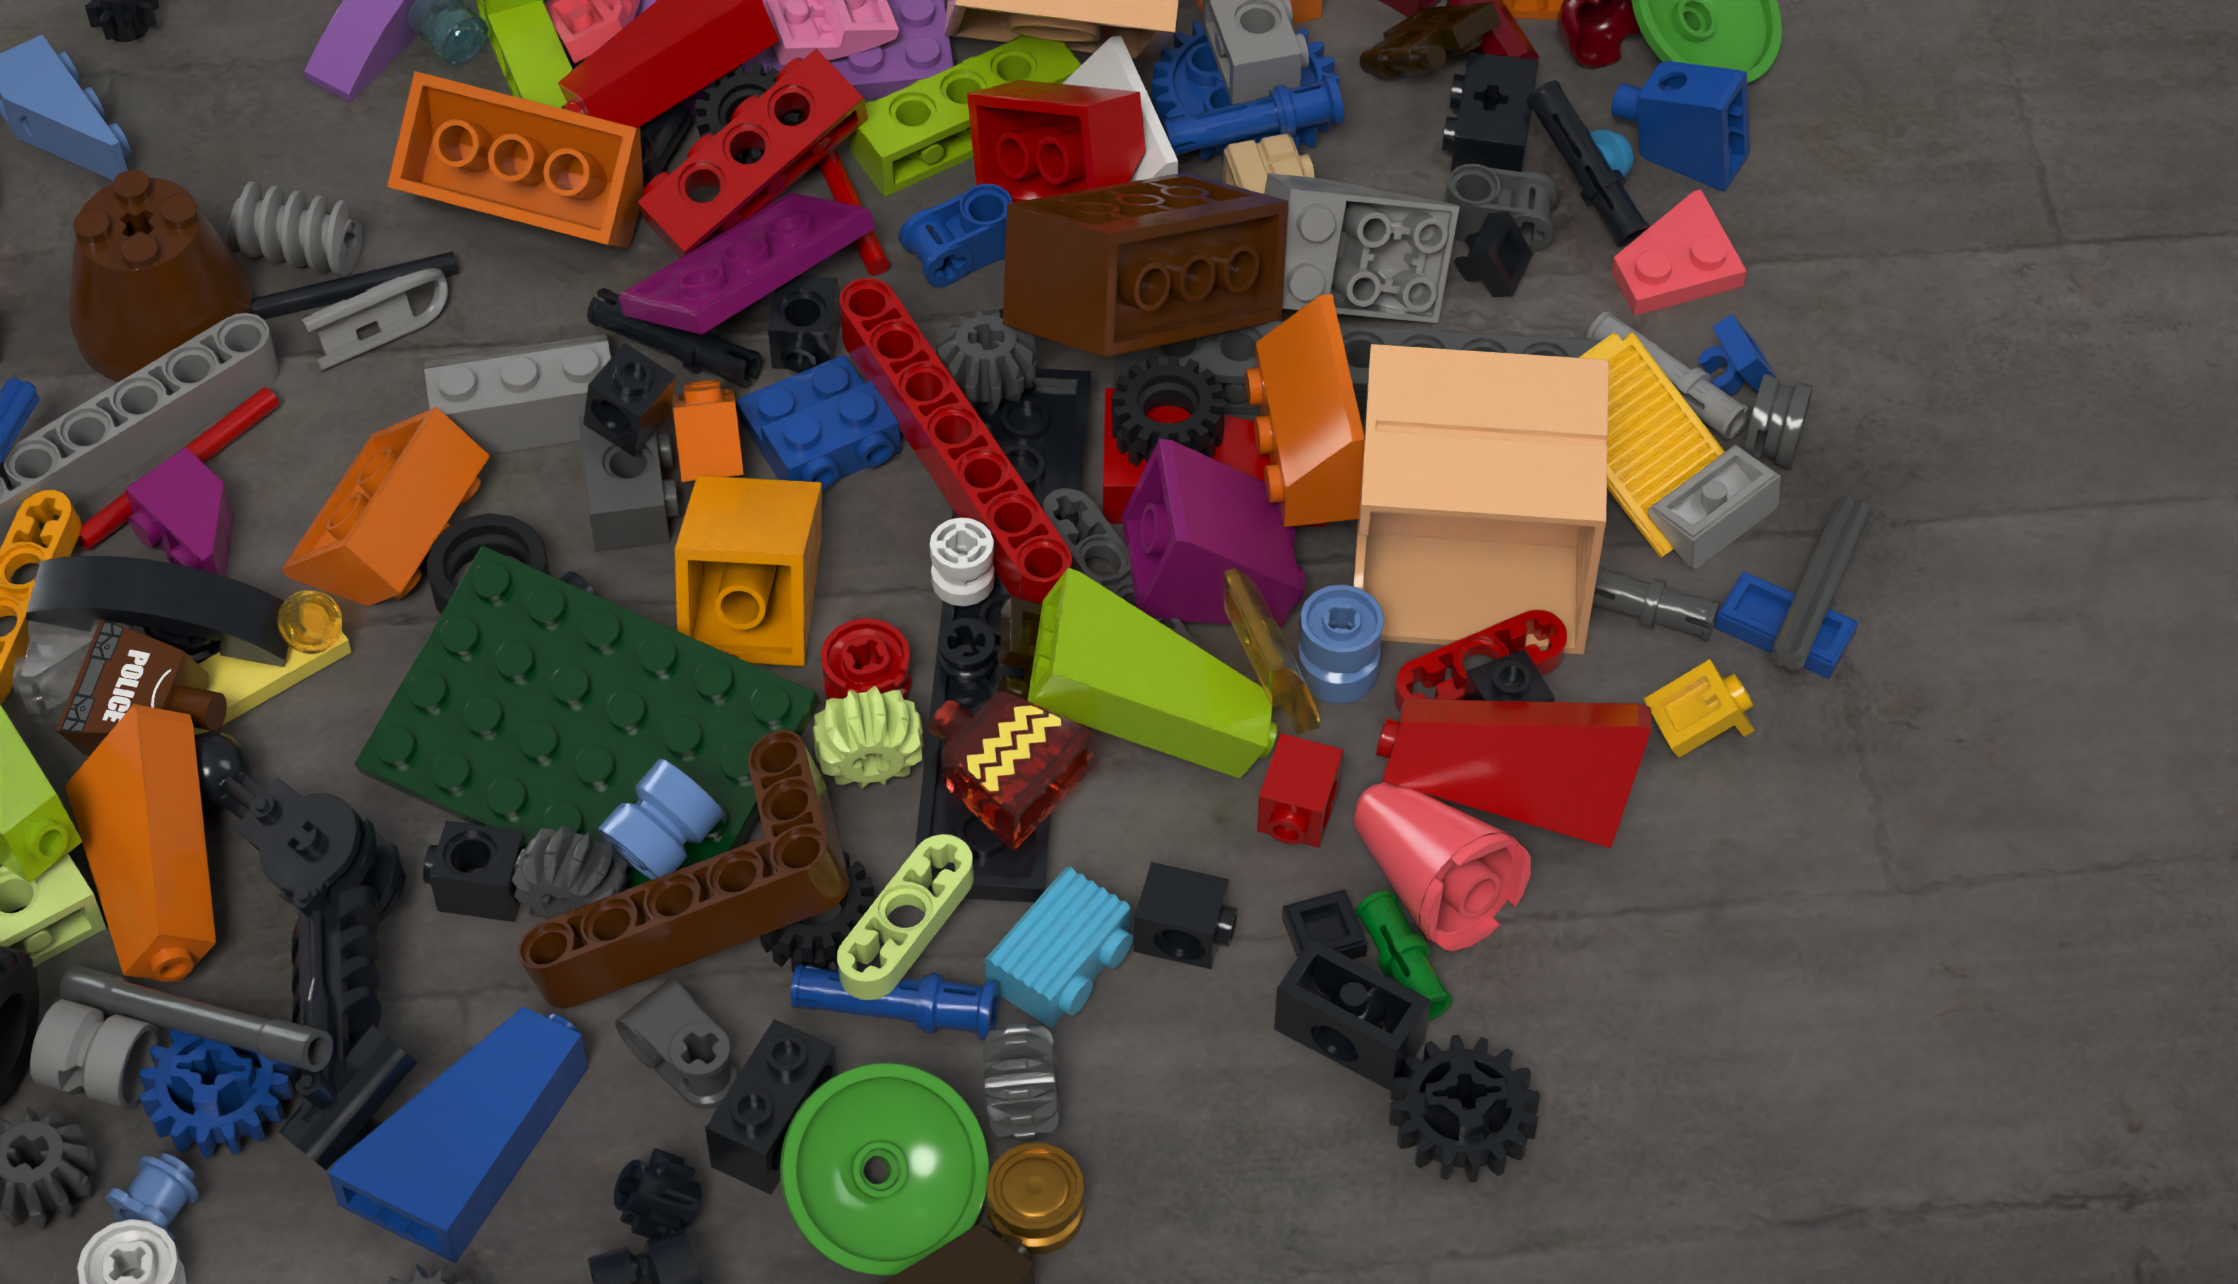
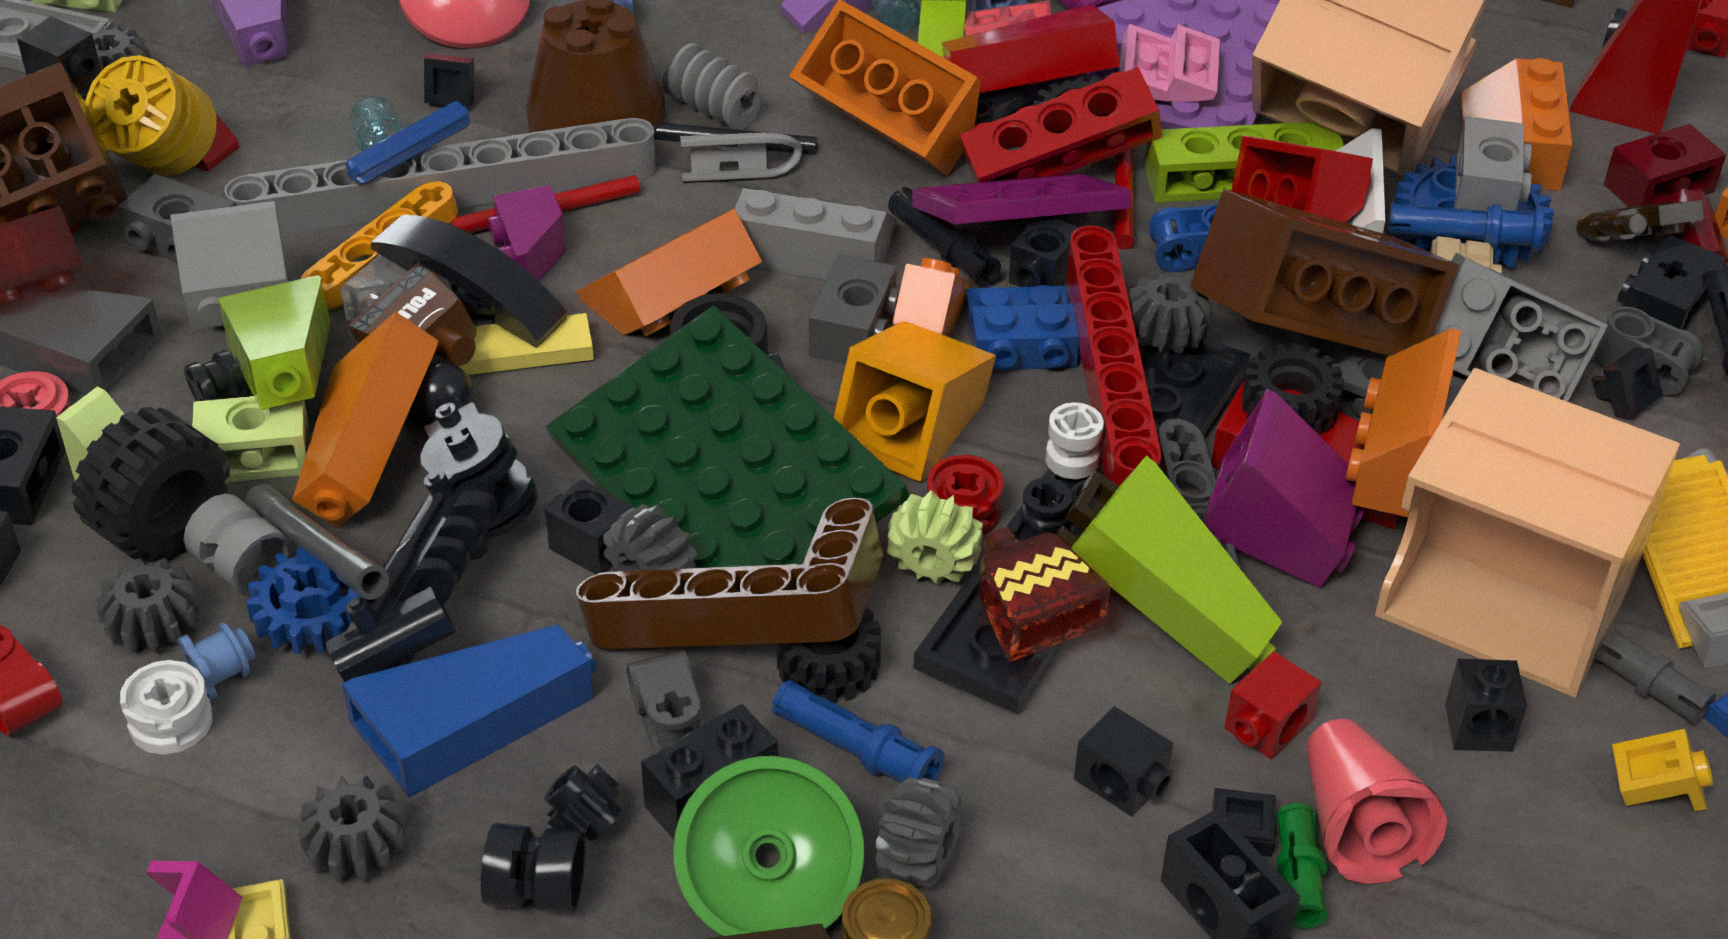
camera: 25 degrees right, 10 degrees down
(310, 621) = (568, 320): clear yellow plate -> none
(629, 399) = (875, 245): black brick -> none
(659, 824) = (734, 529): medium blue wheel -> none
(905, 944) = (881, 694): yellowish green beam -> none
(1060, 948) = (1009, 747): medium azure brick -> none
(1269, 651) = (1294, 587): clear yellow slope -> none
(1340, 643) = (1359, 607): medium blue wheel -> none
(1431, 667) = (1433, 655): red beam -> none
(1522, 760) = (1478, 746): red slope -> none

